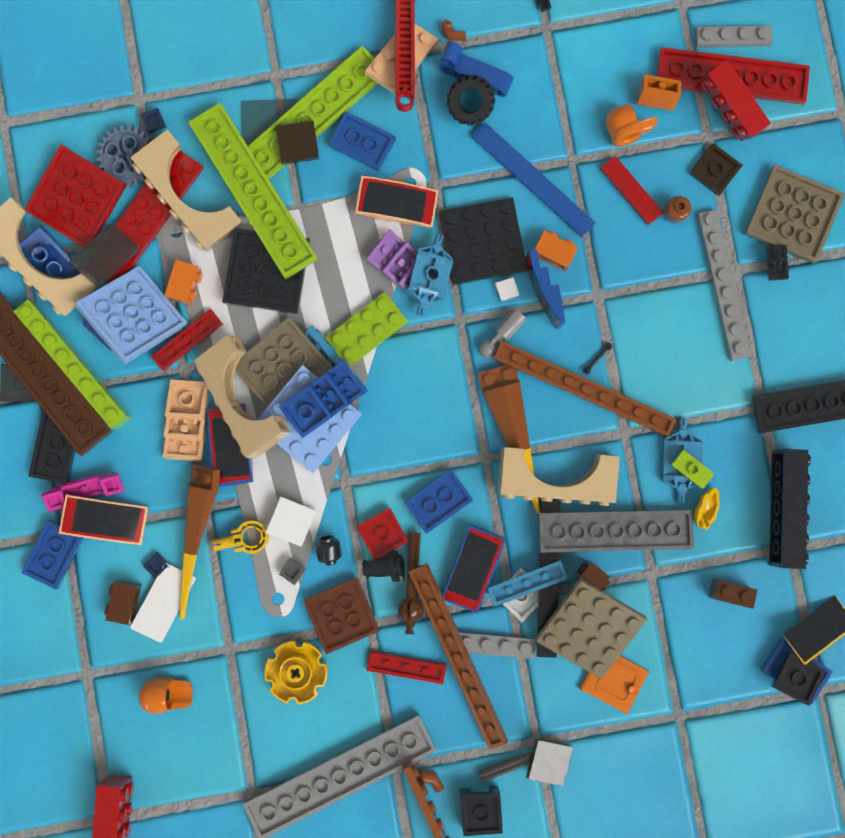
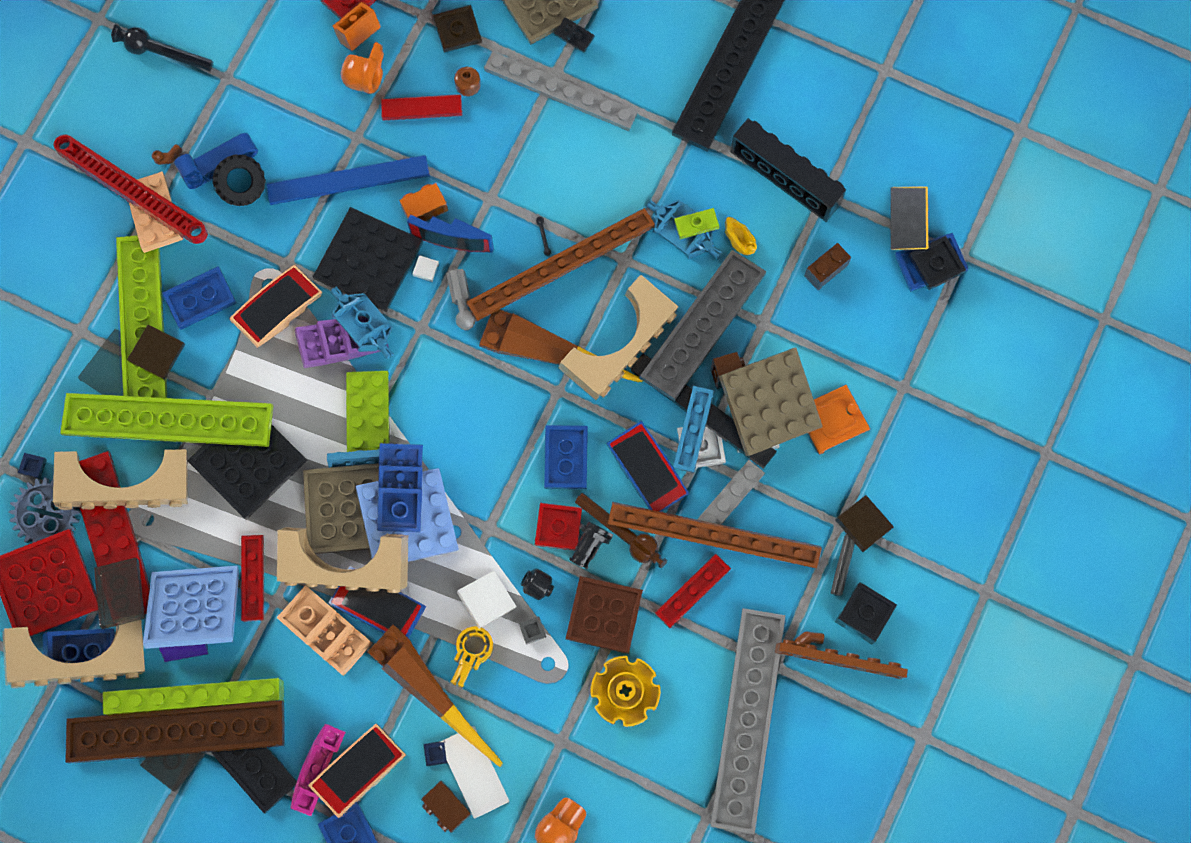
camera: 55 degrees left, 10 degrees down
(183, 282) = (199, 542): orange brick -> none

